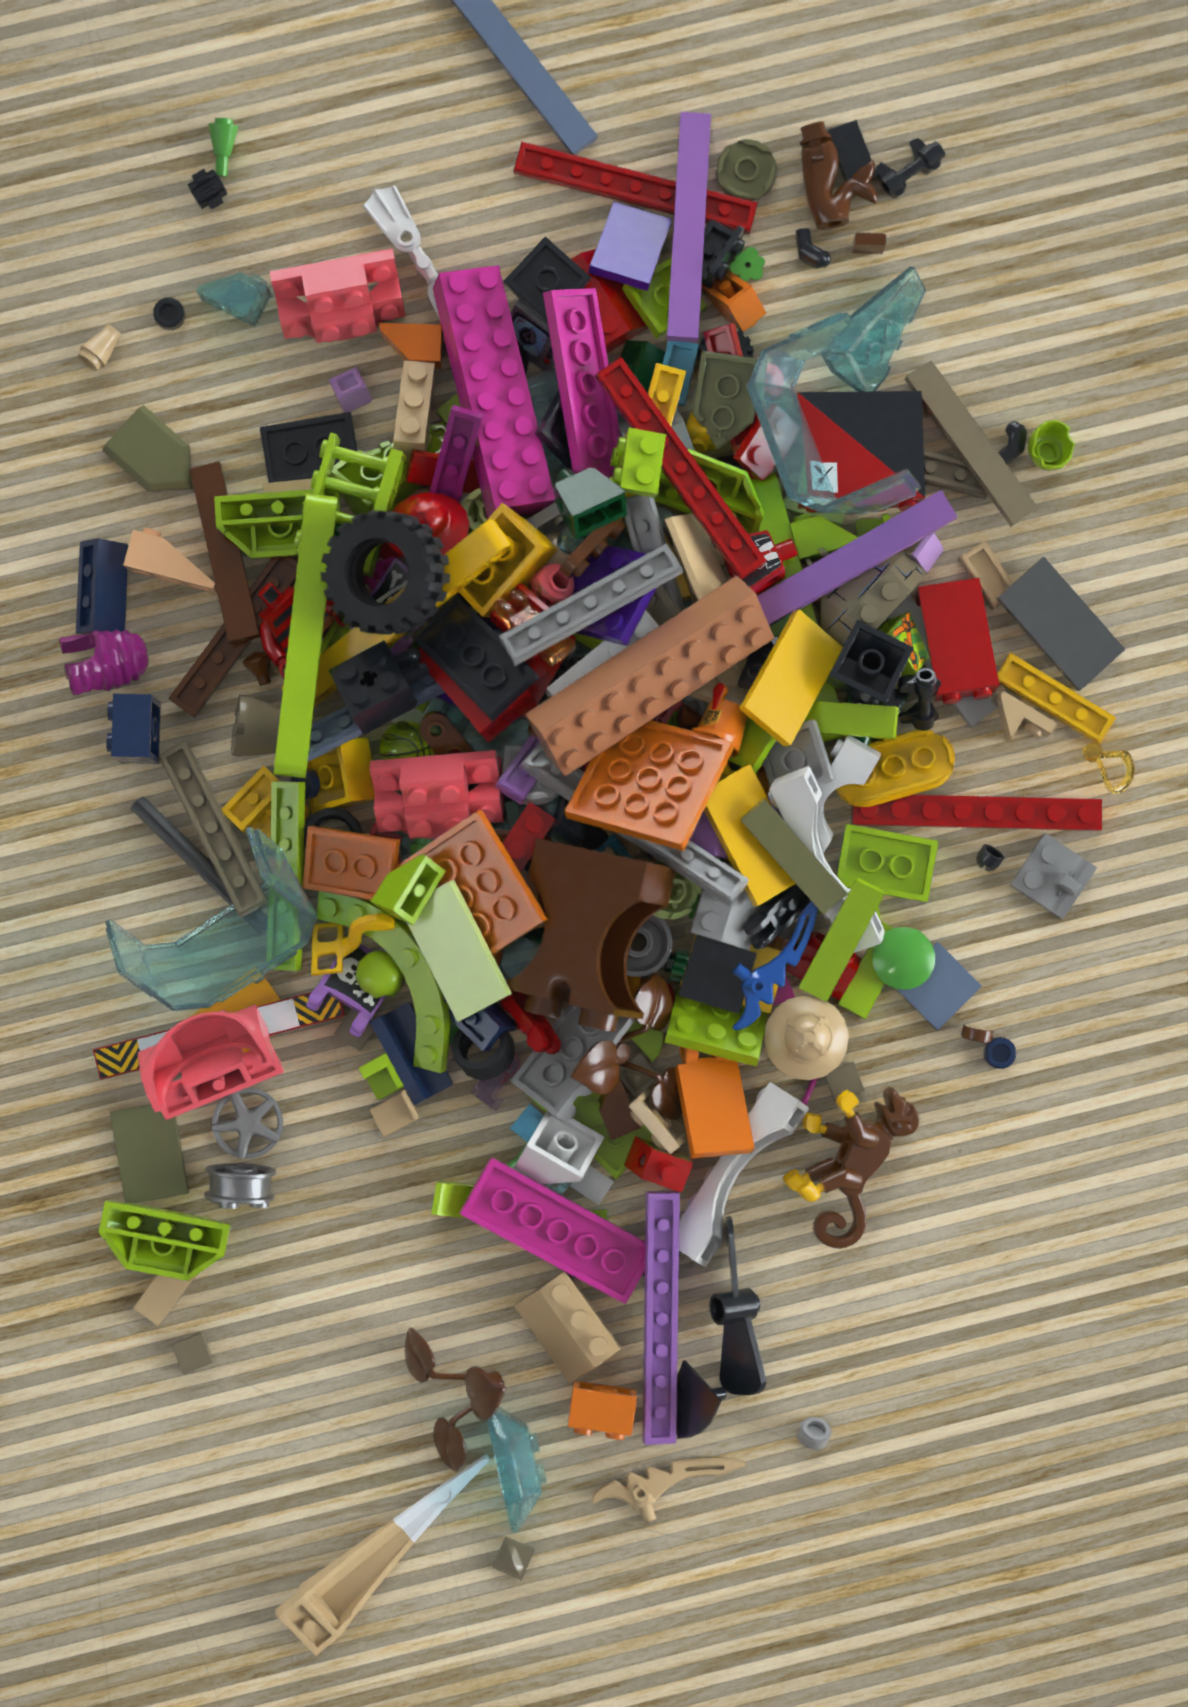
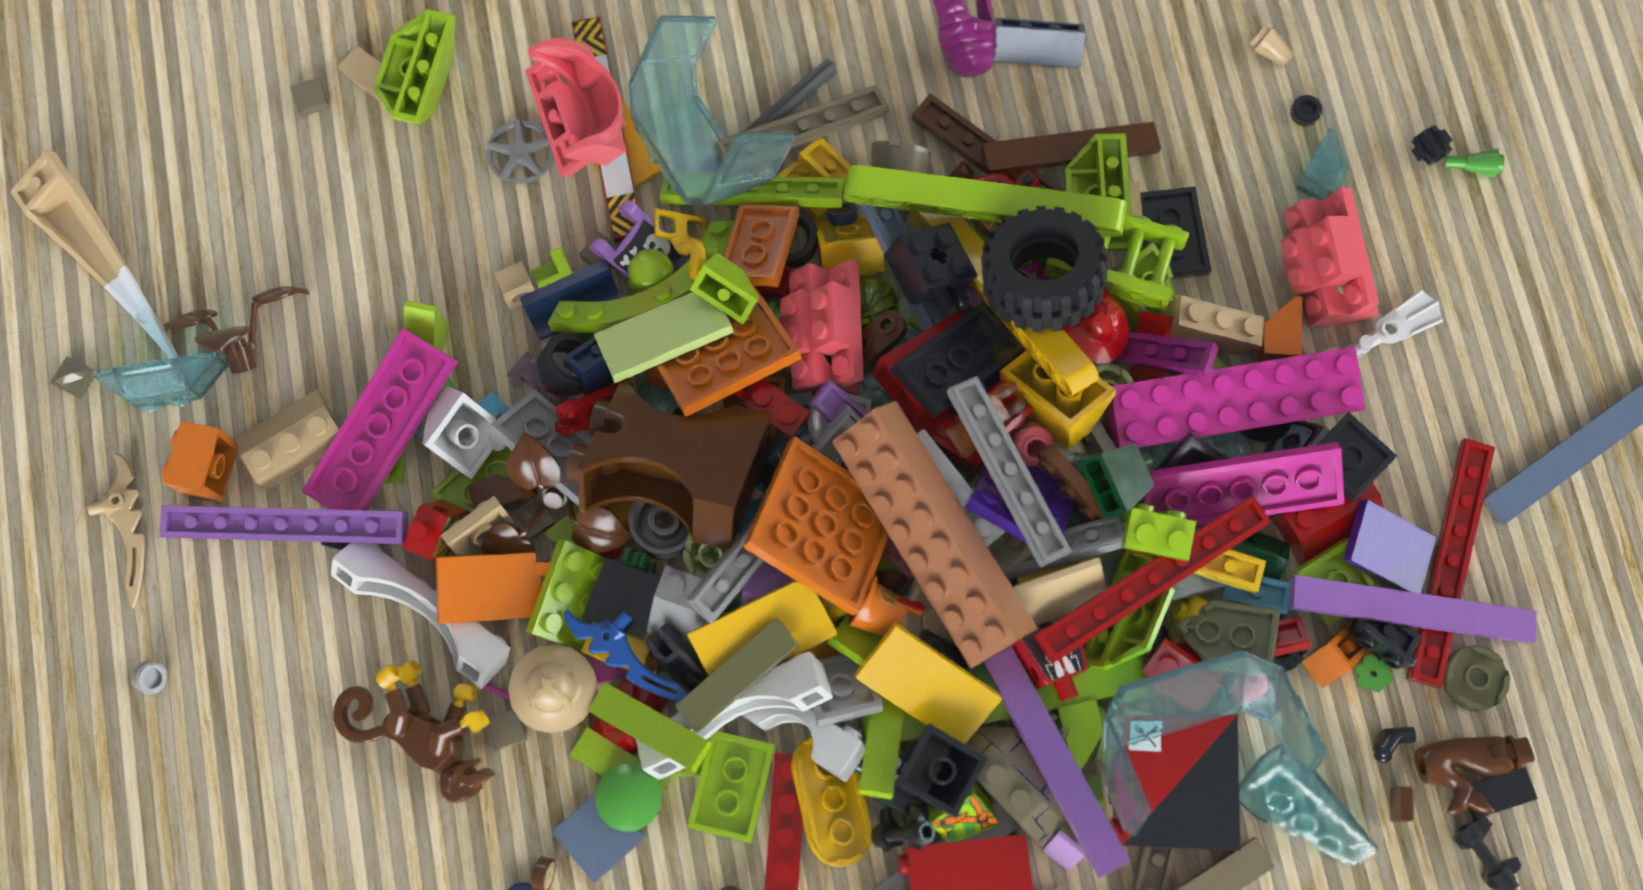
camera: 95 degrees right, 10 degrees down
(134, 728) = (901, 59): dark blue brick -> none
(148, 1154) = (494, 65): olive tile -> none
(151, 453) = (1170, 89): olive tile -> none
(157, 558) = (1066, 91): light nougat slope -> none
(240, 1184) = (458, 136): flat silver wheel -> none
(350, 390) = (1233, 273): lavender slope -> none
(593, 1185) = (429, 470): white sticker -> none
(695, 1402) = (195, 556): black shield -> none
(740, 1357) = (282, 601): black piece -> none

